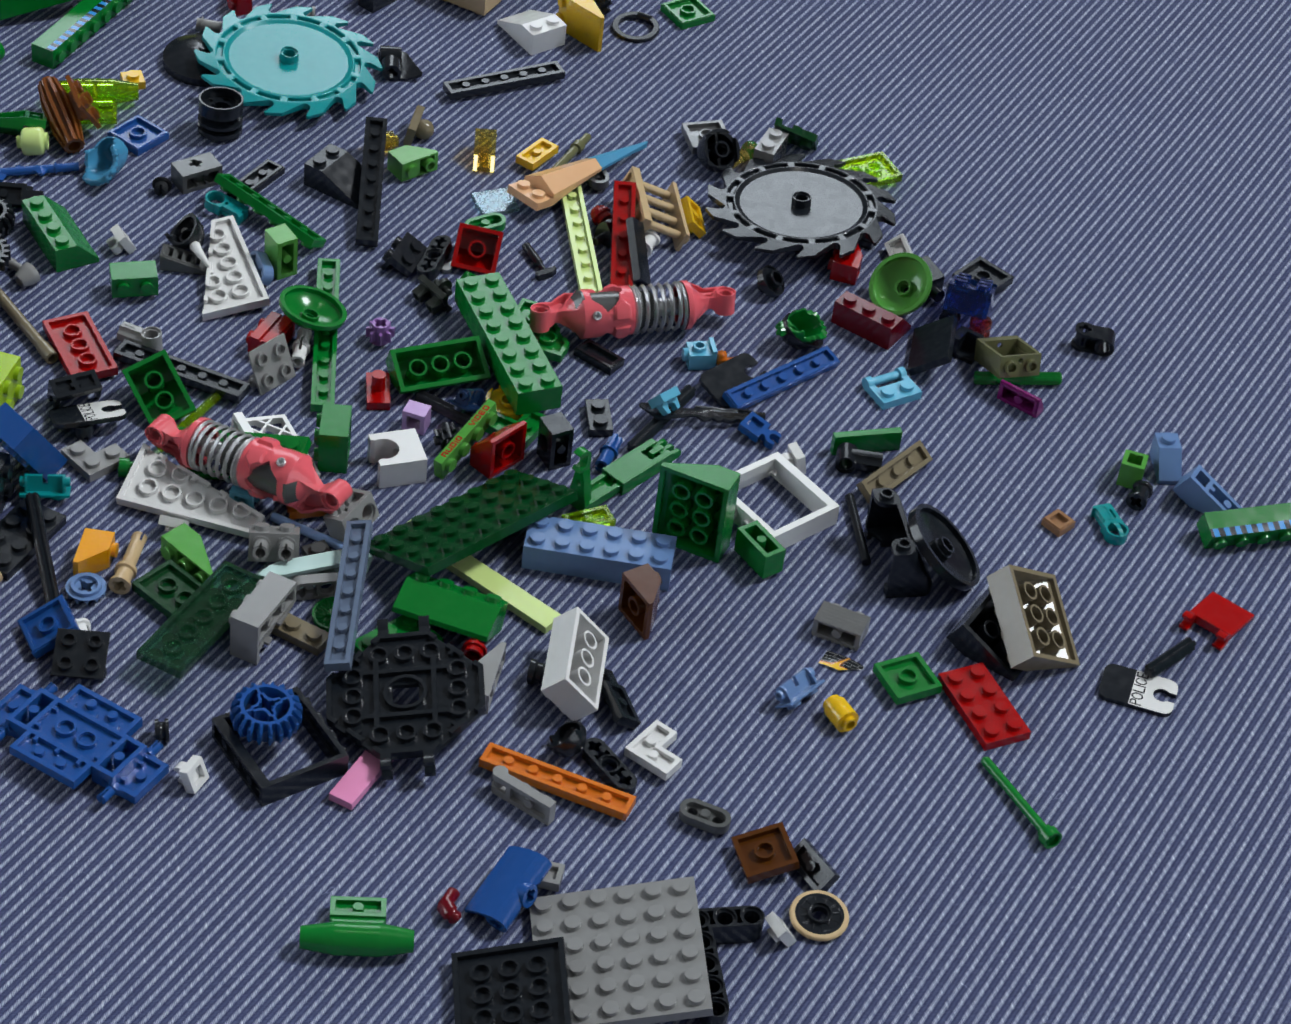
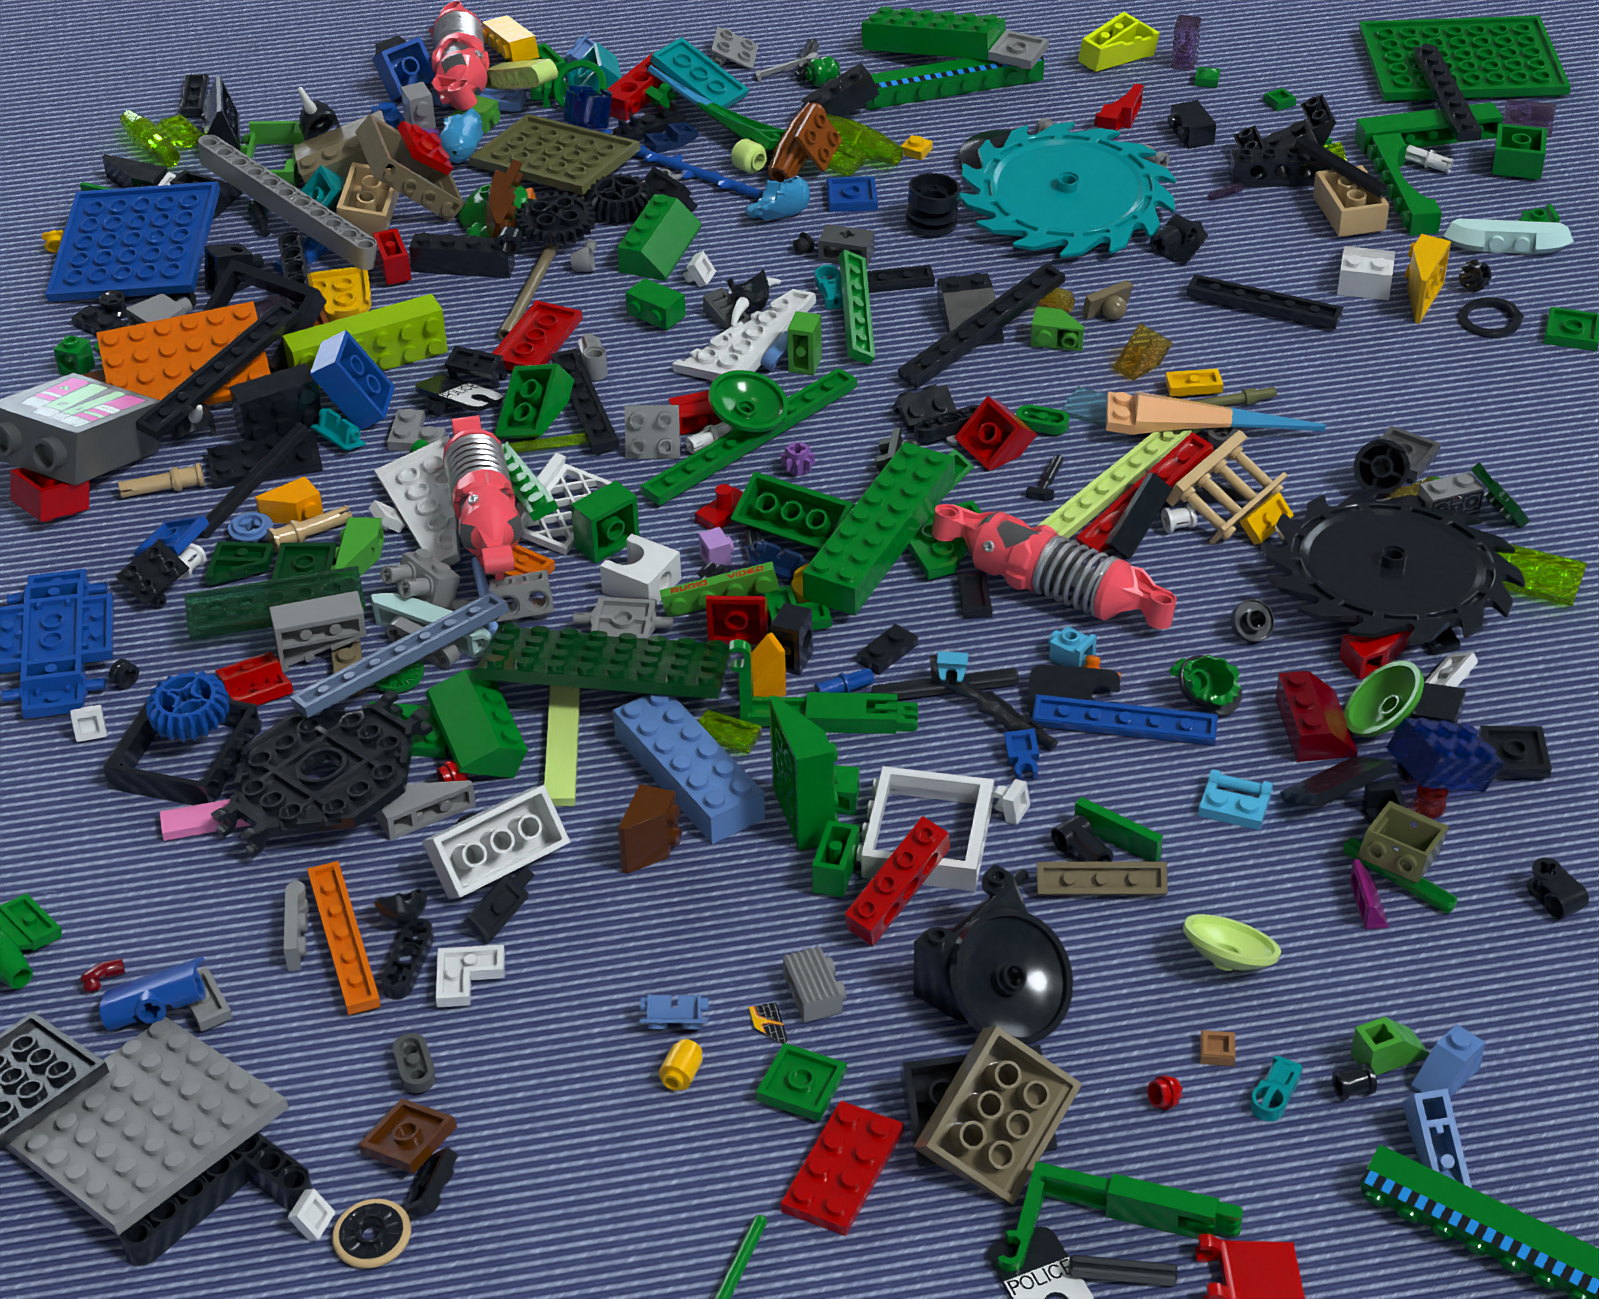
camera: 55 degrees right, 0 degrees up
(39, 59) = (845, 92): none -> black slope
(116, 612) = (238, 560): none -> dark green wing
(248, 669) = (255, 679): none -> red slope
(376, 16) = (1225, 191): none -> clear purple piece
(426, 492) = (624, 616): none -> light grey plate
(564, 460) = (769, 668): none -> light orange slope
(816, 537) = (897, 881): none -> red brick
(1003, 463) = (1230, 943): none -> yellowish green dish
(1071, 560) = (1164, 1092): none -> red plate
(1127, 624) = (1123, 1200): none -> green hinge

